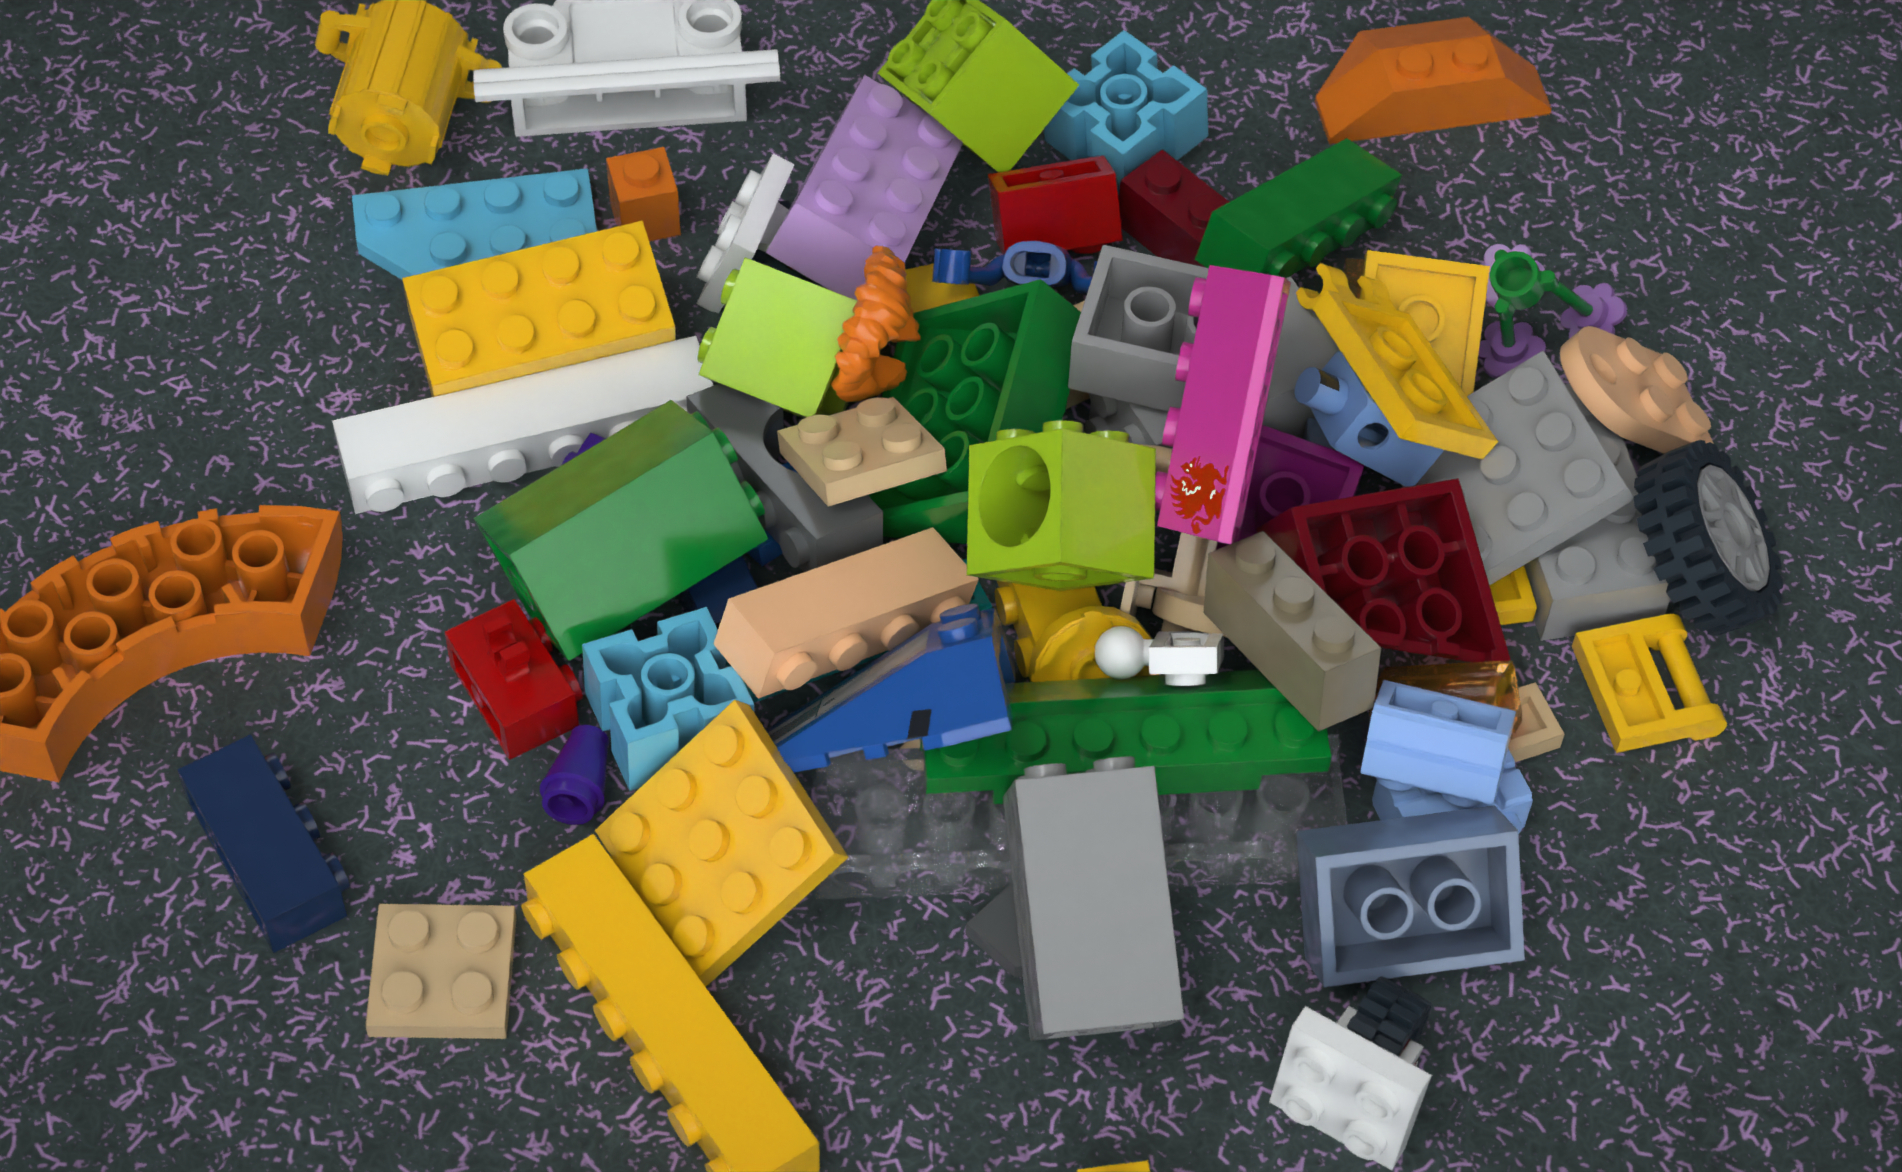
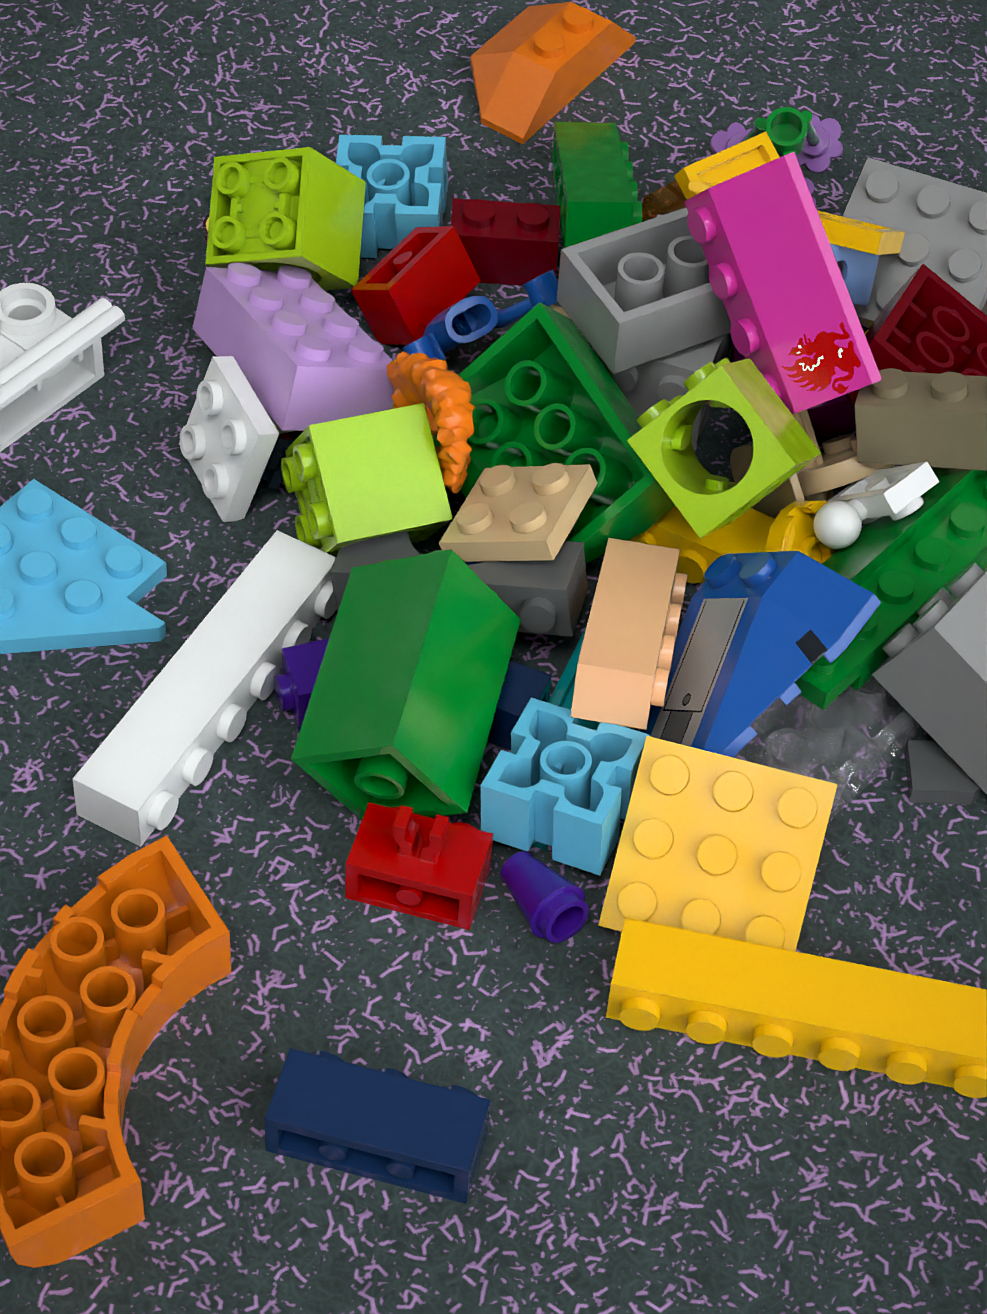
camera: 45 degrees left, 5 degrees down
(441, 971) = (608, 1110): tan plate -> none
(538, 309) = (142, 594): yellow brick -> none
(644, 190) = (108, 467): orange brick -> none
(1633, 390) = (905, 153): light nougat plate -> none

